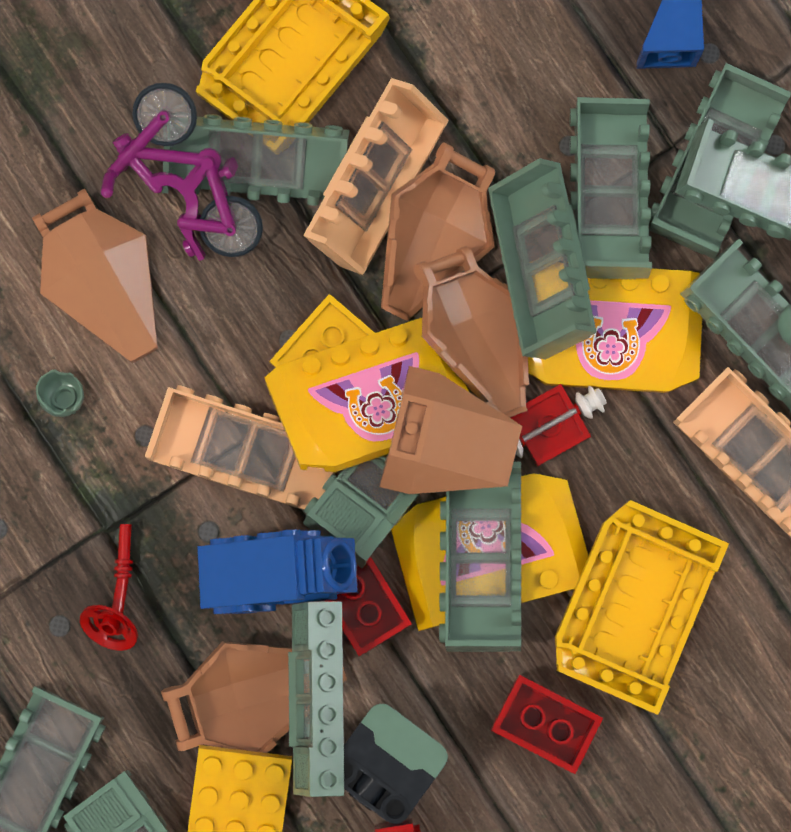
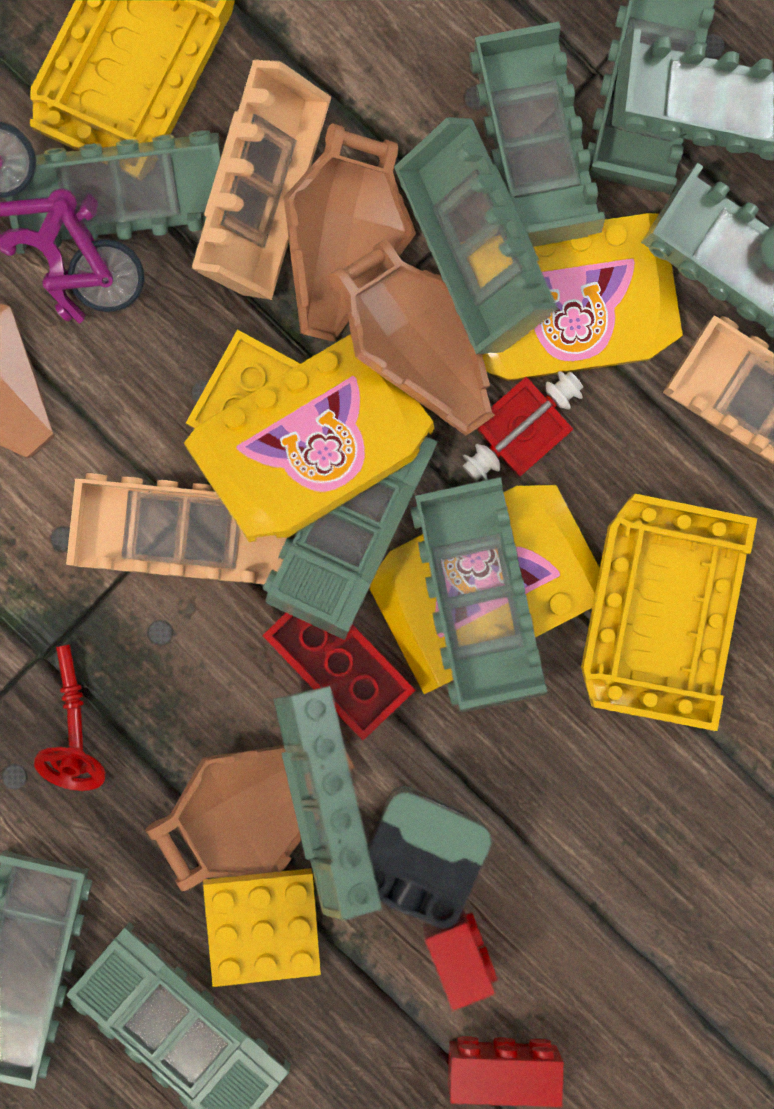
camera: 15 degrees left, 5 degrees up
(274, 569) = (244, 664): blue piece -> none
(447, 439) = (411, 470): nougat wedge -> none
(546, 724) = (592, 769): red brick -> none

